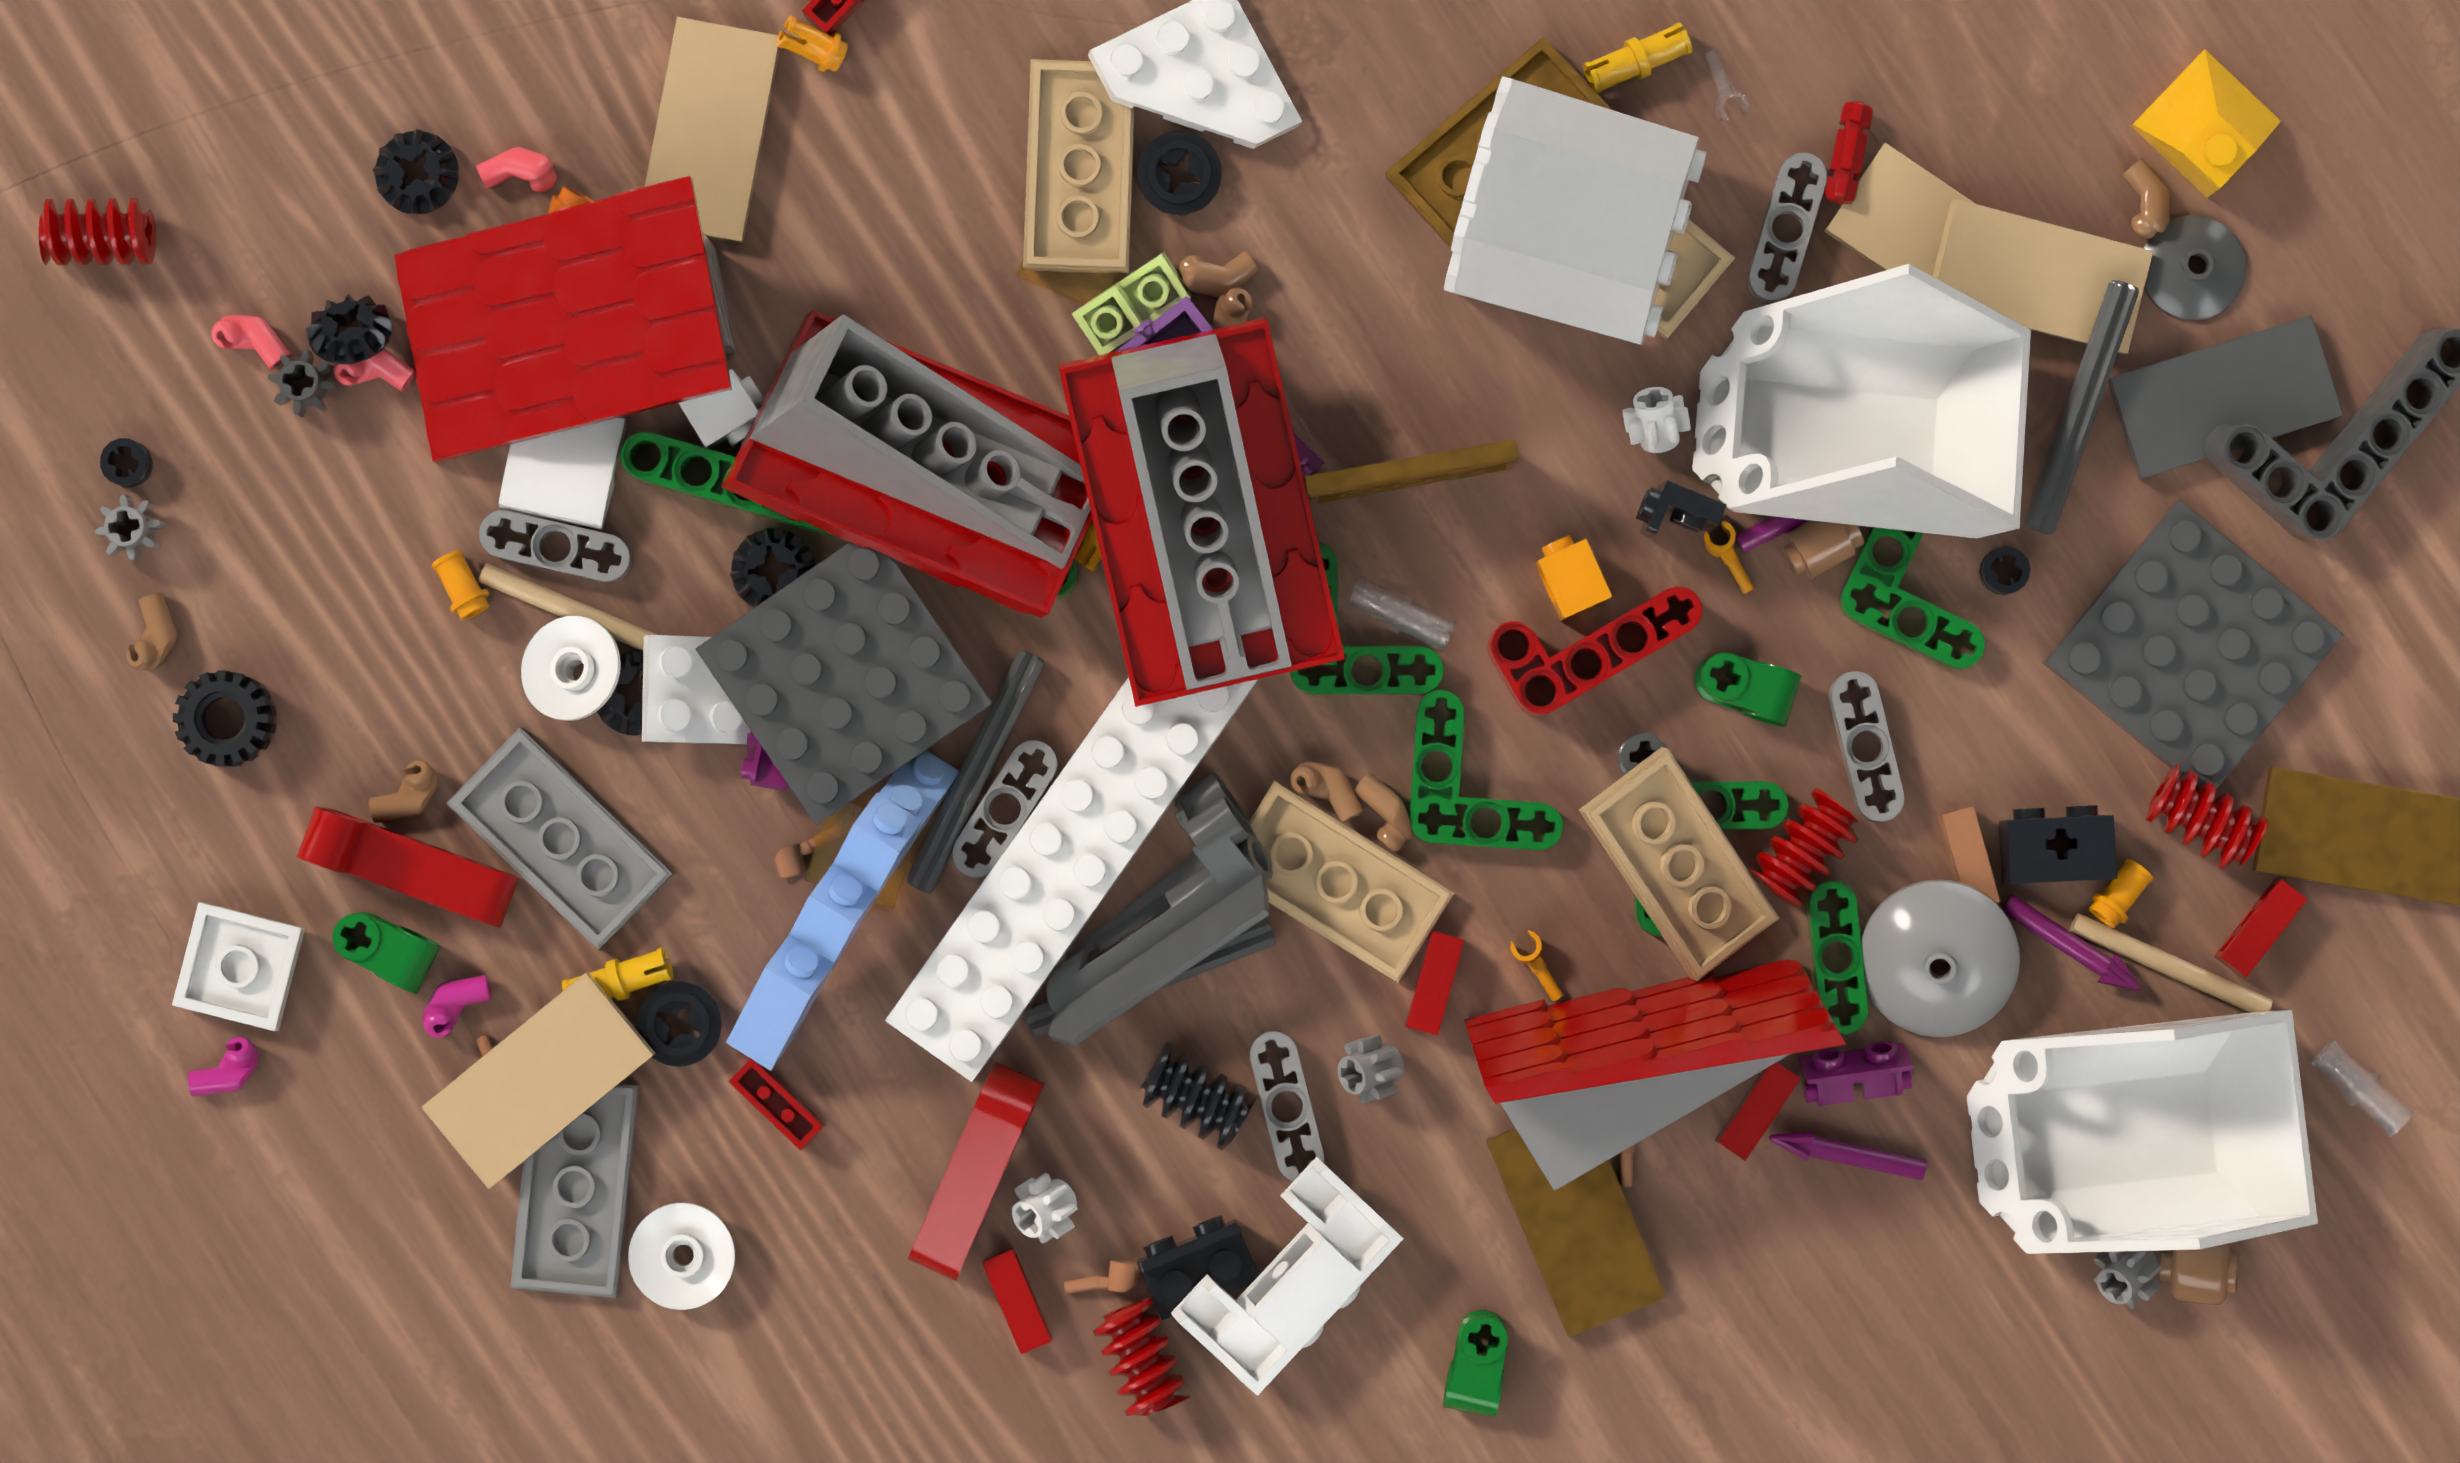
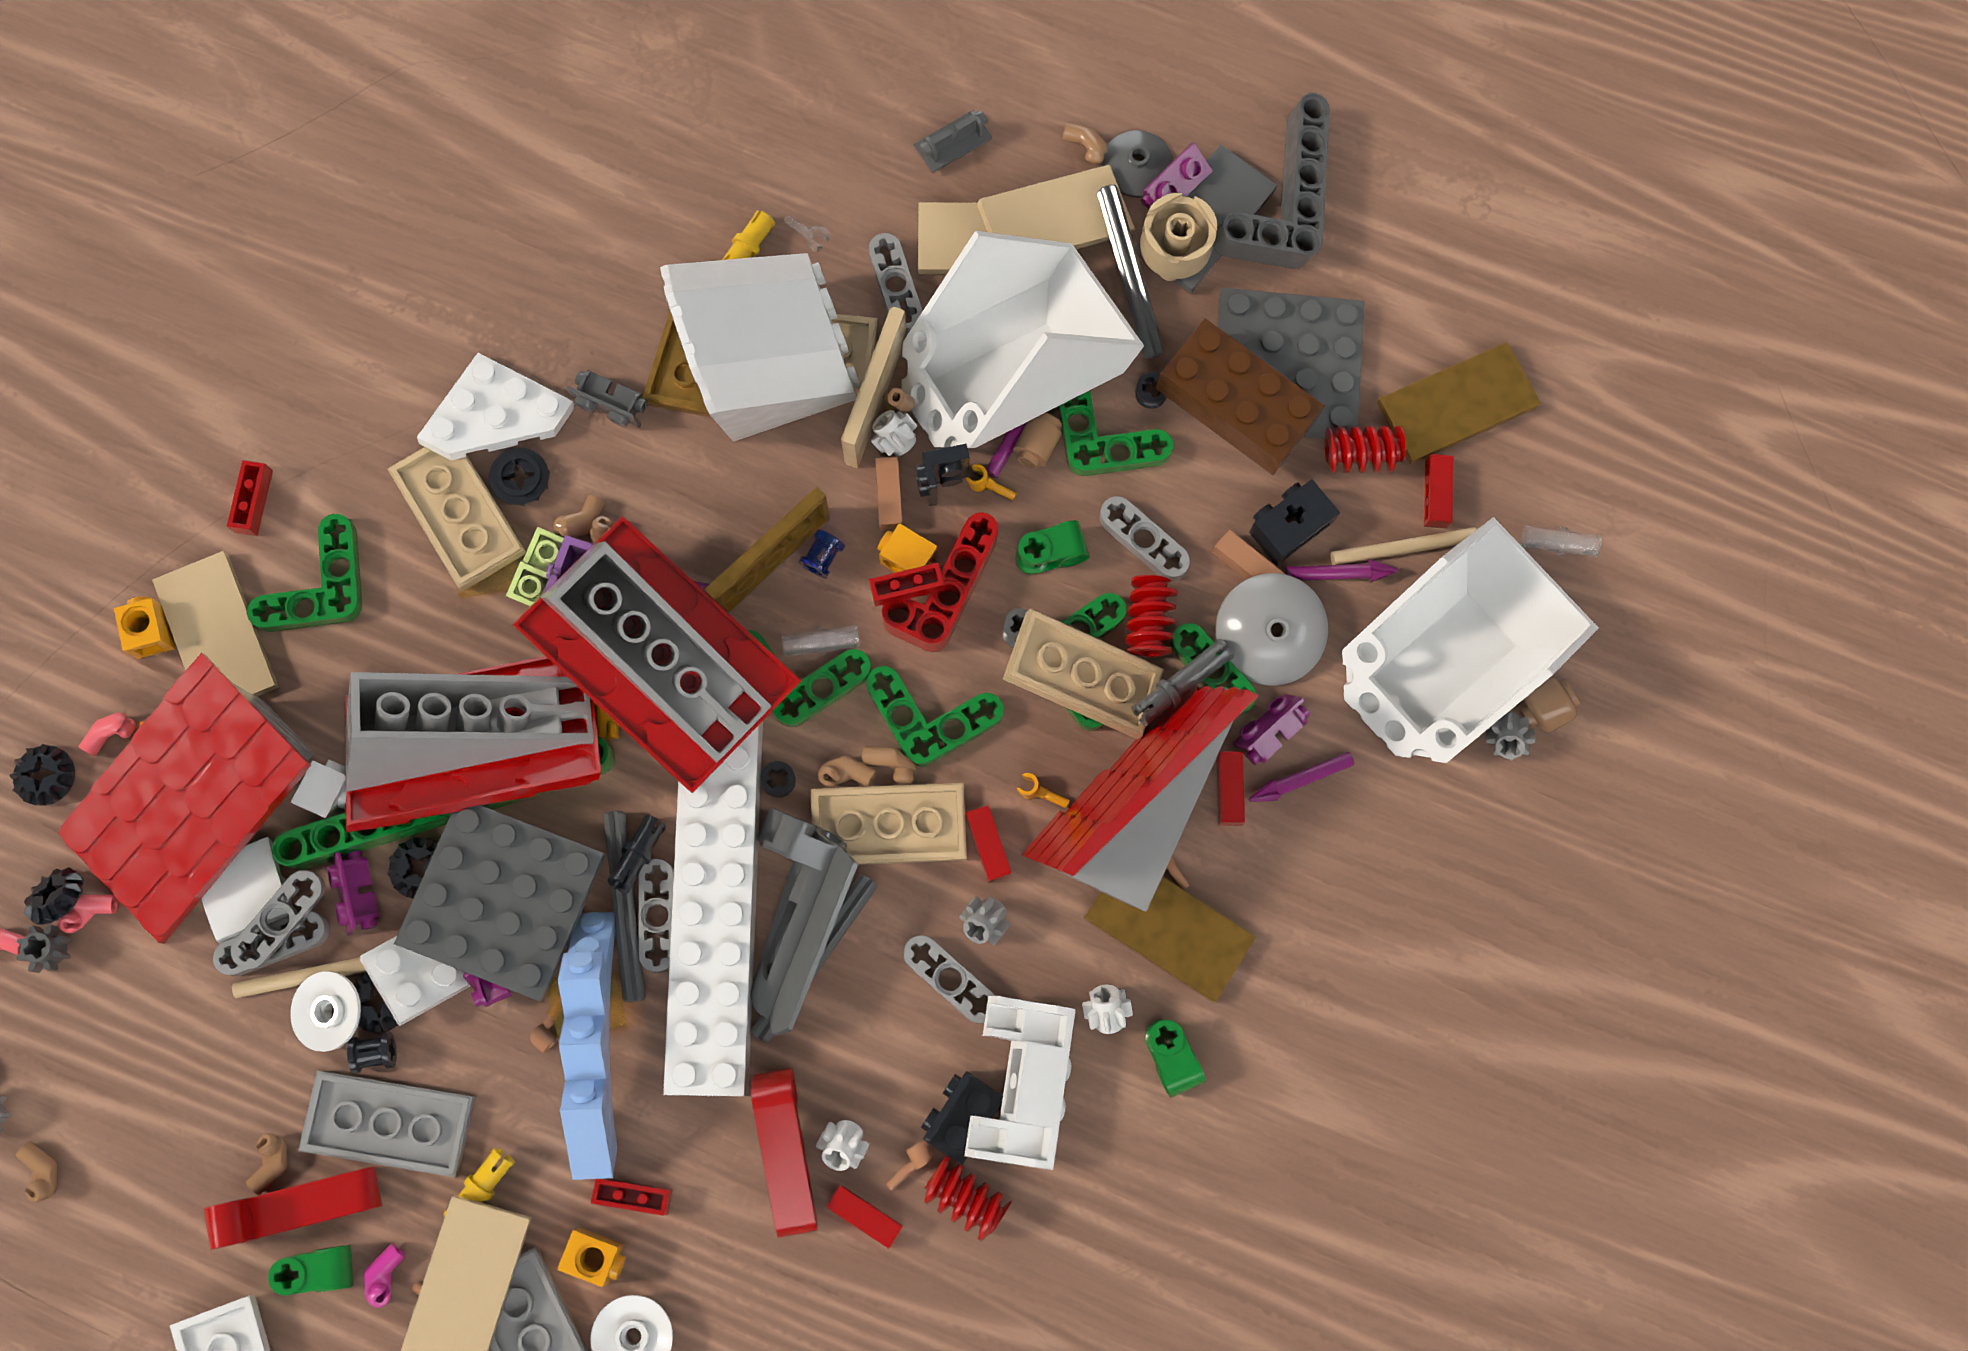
camera: 40 degrees left, 10 degrees down
(192, 718) = (93, 1194): black tyre -> none
(461, 585) = (224, 1007): light orange pin -> none
(549, 554) = (267, 949): none -> light grey beam
(592, 749) = (371, 1052): none -> black bush
(638, 94) = (154, 639): none -> light orange brick
(670, 1134) = (574, 1257): none -> light orange brick
(683, 529) = (347, 878): none -> magenta hinge
(703, 1016) = (524, 1175): black gear -> none
(814, 45) = (248, 542): light orange pin -> none
(858, 169) = (323, 597): none -> green beam
(1028, 724) = (636, 853): none -> black pin
(1196, 1097) = (890, 1011): black piece -> none
(1252, 729) = (778, 790): none -> black bush
(1333, 129) = (593, 394): none -> dark grey hinge
(1440, 1262) = (1107, 1009): none -> white gear
(1472, 509) = (831, 544): none -> clear blue bush
(1543, 622) = (906, 584): none -> red piece
(1601, 487) = (888, 493): none -> nougat piece
(1669, 350) = (873, 387): none -> tan tile
(1687, 382) = (898, 400): none -> medium nougat arm
(1786, 952) = (1169, 692): none -> dark grey pin
(1848, 152) = (902, 220): red axle -> none
(1983, 88) = (953, 140): none -> dark grey hinge
(2097, 658) = (1239, 396): none -> reddish brown brick
(2120, 894) = (1347, 524): light orange pin -> none
(2188, 386) = (1178, 236): none -> tan brick
(2206, 124) = (1089, 84): yellow slope -> none
(2220, 330) = (1179, 177): none -> hinge

